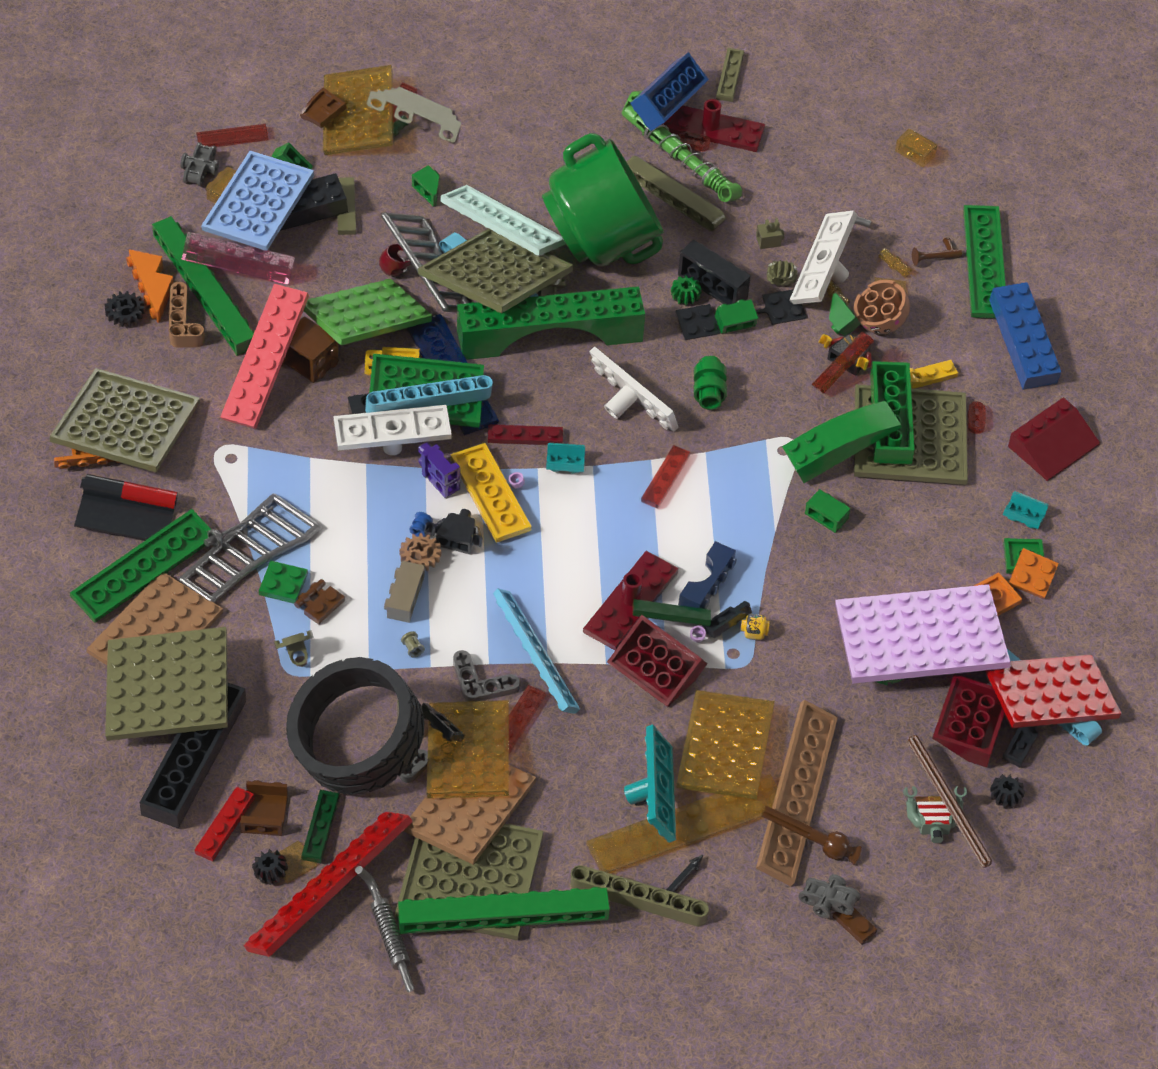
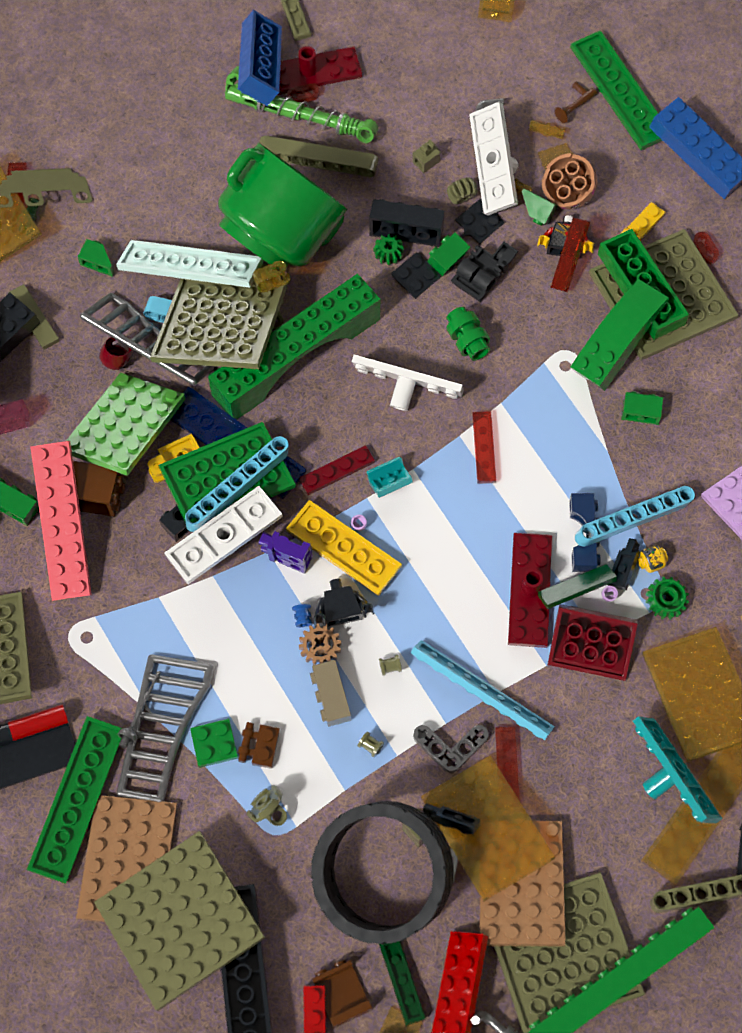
camera: 25 degrees left, 15 degrees up
(469, 595) = (390, 665): none -> olive bush
(563, 254) = (269, 277): none -> clear yellow piece
(746, 670) = (660, 605): none -> green gear
(750, 585) = (627, 519): none -> medium azure beam
(758, 341) = (482, 270): none -> black plate

